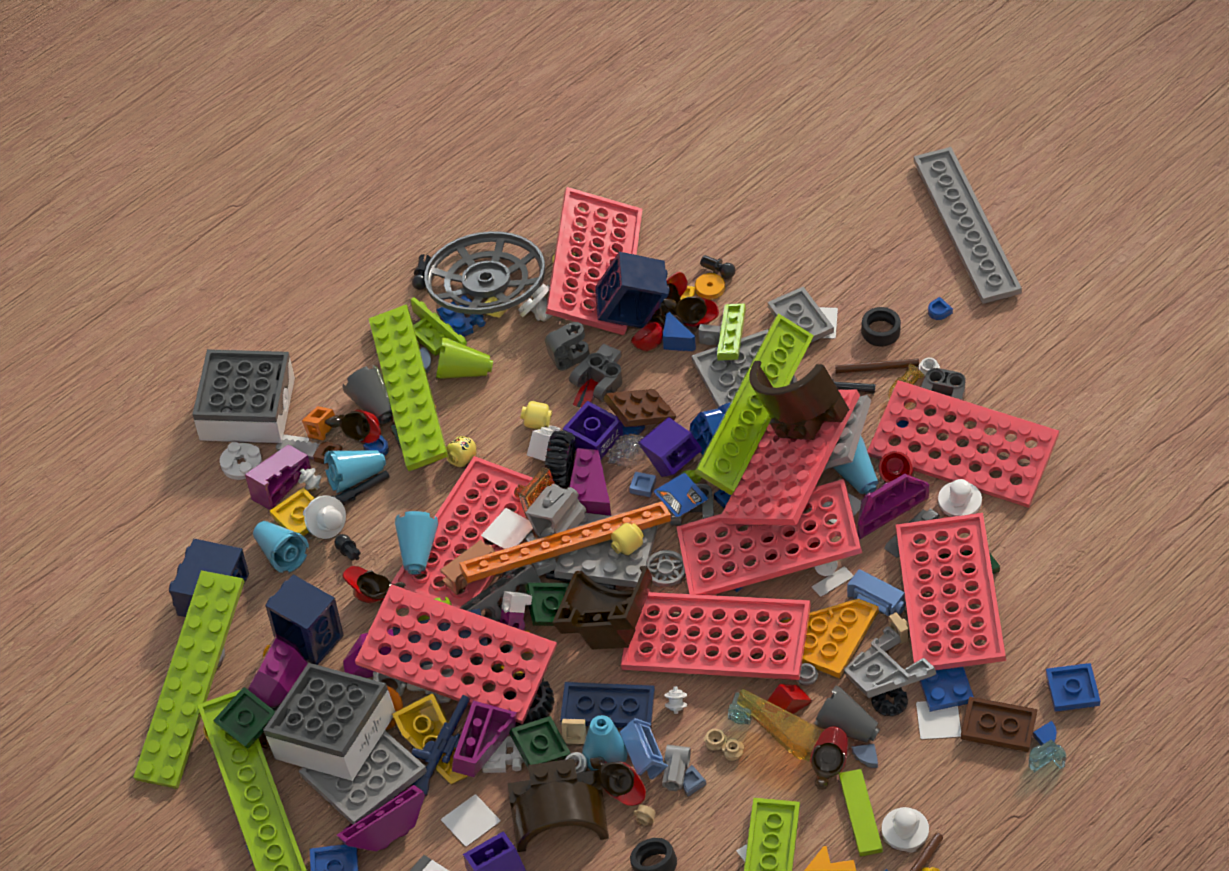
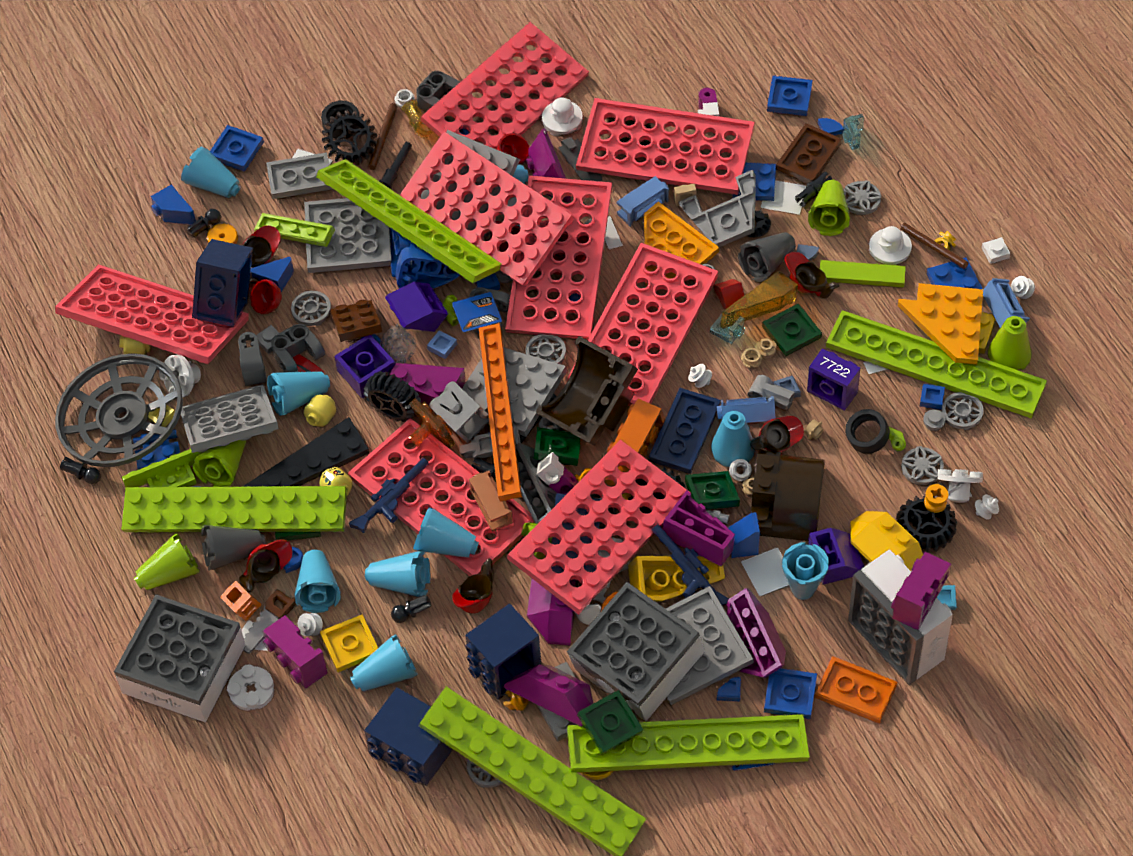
camera: 75 degrees left, 5 degrees up
(324, 517) = (372, 614): white plate -> none
(328, 820) = (730, 690): none -> blue tile
(340, 359) = (167, 565): none -> lime cone
(349, 494) = (349, 607): black pin -> none
(375, 530) = (401, 574): none -> medium azure cone
(451, 831) = (804, 568): none -> medium azure cone
(459, 492) = (388, 503): none -> dark blue piece
(491, 434) = (331, 449): none -> black wing
(492, 785) = (746, 536): none -> blue slope
(496, 348) = (228, 418): none -> light grey plate
(508, 529) = (453, 462): white sticker -> none
(539, 442) = (359, 408): white slope -> none
(549, 388) = (295, 389): none -> medium azure cone
(573, 731) = (705, 461): tan plate -> none
(582, 663) = (638, 429): none -> orange wedge
(627, 539) = (516, 361): light yellow head -> none
(652, 375) = (311, 308): none -> light grey wheel
(703, 811) = (833, 379): none -> dark purple brick
(709, 334) = (288, 247): light grey plate -> none
(727, 236) = (172, 207): none -> blue slope
(762, 765) = (792, 329): none -> dark green plate
(770, 248) = (210, 174): none -> medium azure cone
(801, 406) = (454, 182): dark brown piece -> none
(814, 260) = (236, 147): none -> blue plate
(851, 348) = (357, 133): none -> black gear
(929, 757) = (830, 210): none -> lime cone
(939, 309) = (338, 75): blue tile -> none
(953, 740) = (812, 189): none -> black pin
(962, 787) = (862, 197): none -> light grey wheel
(967, 225) = (251, 26): light grey plate -> none
(1023, 619) = (708, 102): none -> leg

